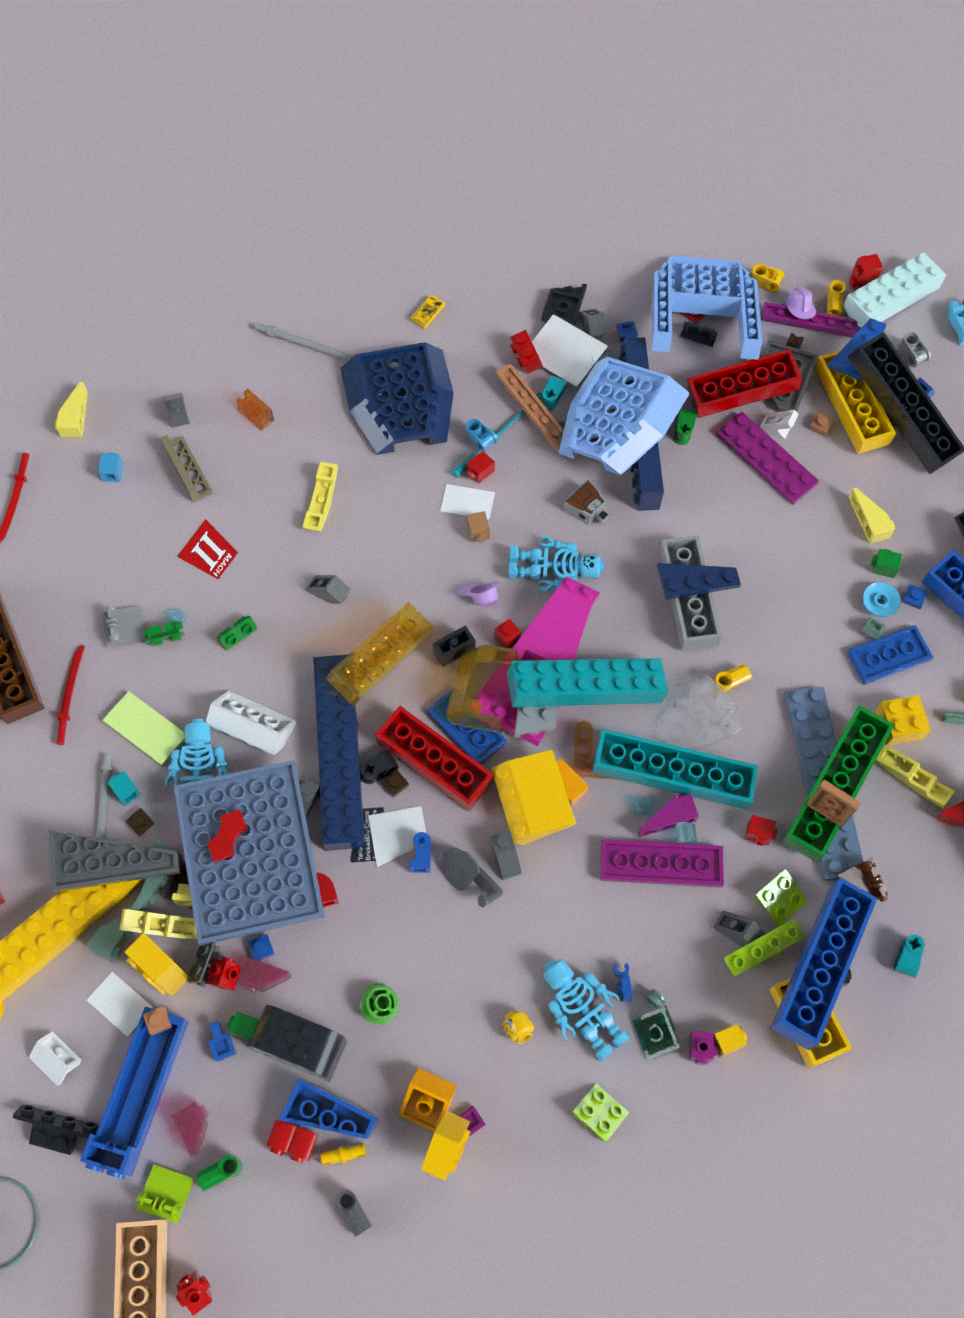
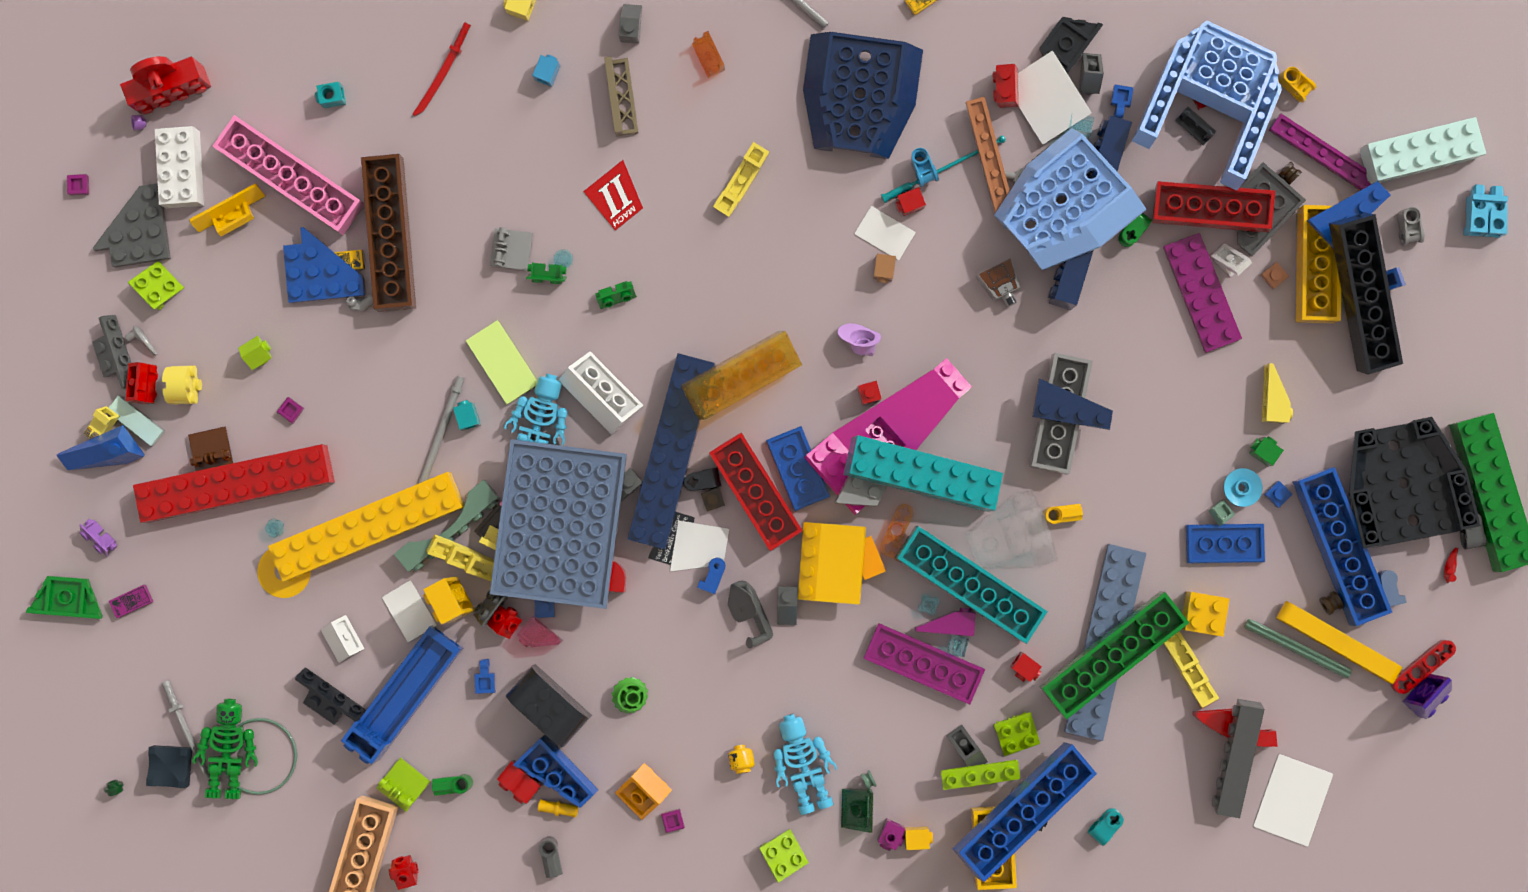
camera: 25 degrees right, 20 degrees up
(64, 715) = (440, 302): red sword -> none
(95, 861) = (421, 485): dark grey wing -> none
(140, 822) = (472, 452): dark brown plate -> none
(157, 1020) = (436, 643): nougat plate -> none
(192, 1126) = (440, 739): clear pink slope -> none
(223, 844) = (537, 513): red tile -> none
(242, 1026) = (508, 672): green brick -> none
(328, 588) = (716, 282): dark grey slope -> none
(446, 1146) = (644, 838): yellow brick -> none
(453, 645) = (814, 387): black brick -> none
(462, 708) = (796, 449): clear yellow windscreen -> none
(553, 392) = (1017, 140): teal piece -> none
(588, 565) = (974, 349): medium azure piece -> none
(624, 988) = (845, 760): blue plate -> none
(800, 303) = (1316, 130): lavender piece -> none
(833, 803) = (1092, 683): nougat tile -> none
(834, 298) = (1356, 137): yellow piece -> none
(865, 271) = (1402, 119): red brick -> none
(866, 877) = (1097, 748): hinge -> none

